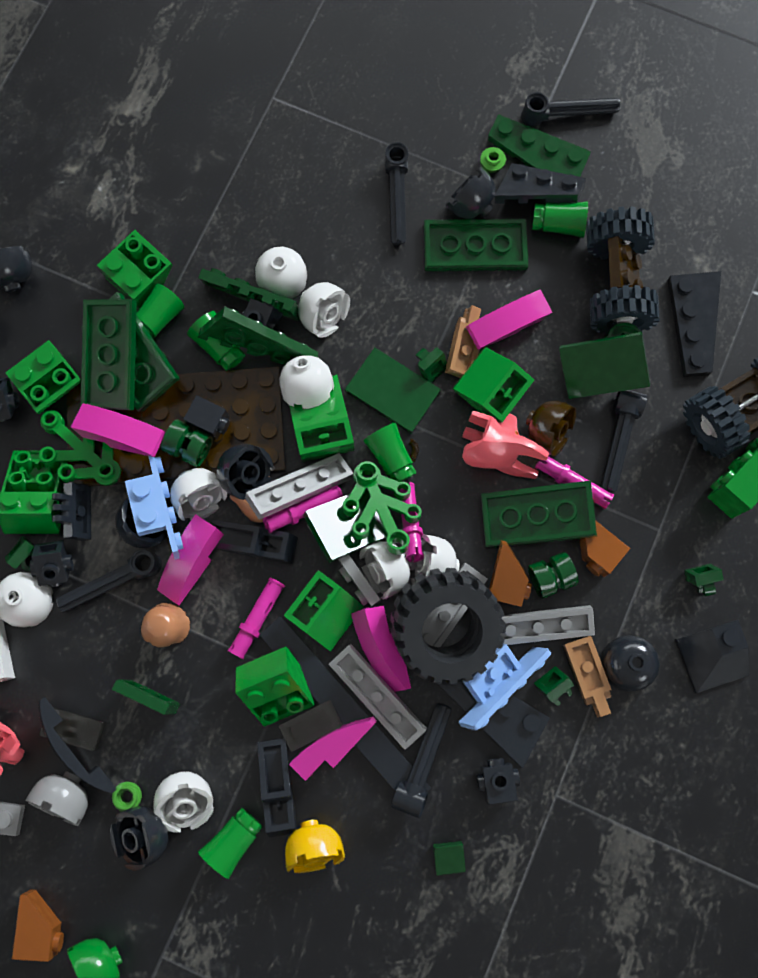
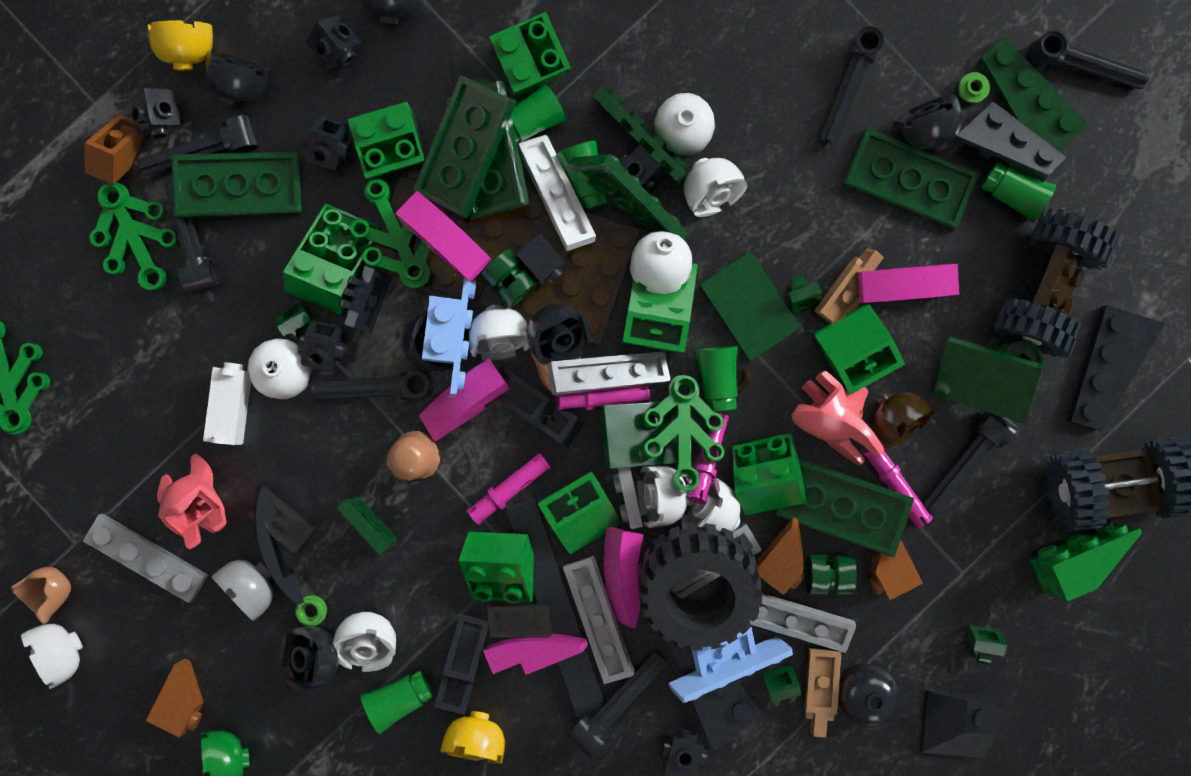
camera: 20 degrees right, 10 degrees up
(199, 363) = (556, 193): none -> white plate
(465, 515) = (767, 474): none -> green slope

